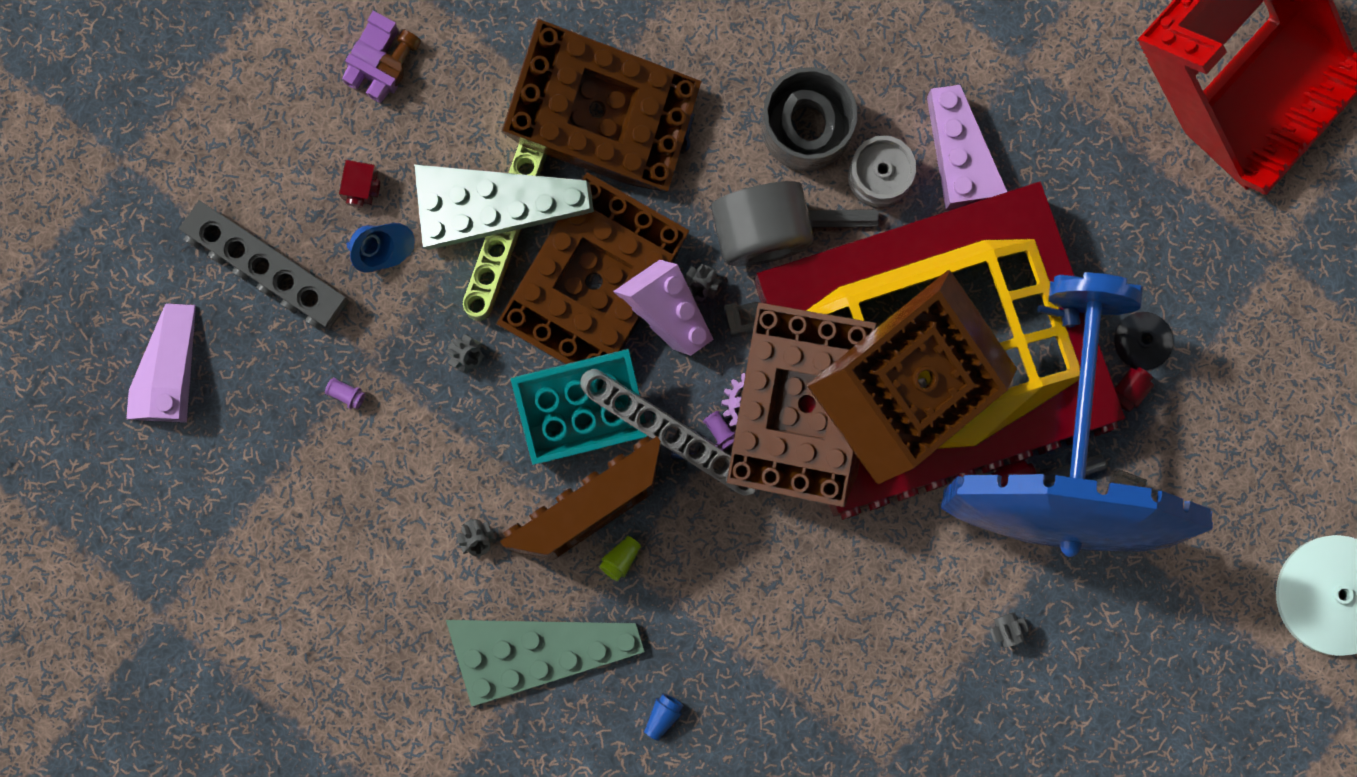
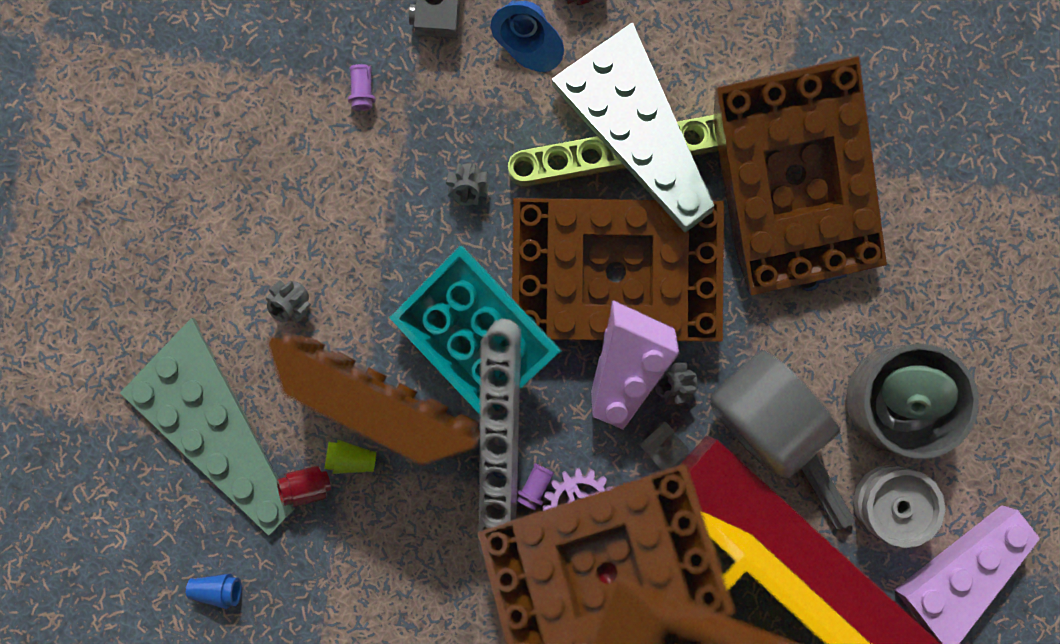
camera: 65 degrees right, 5 degrees up
(622, 603) = (303, 486): none -> dark red brick
(805, 111) = (919, 393): none -> sand green dish

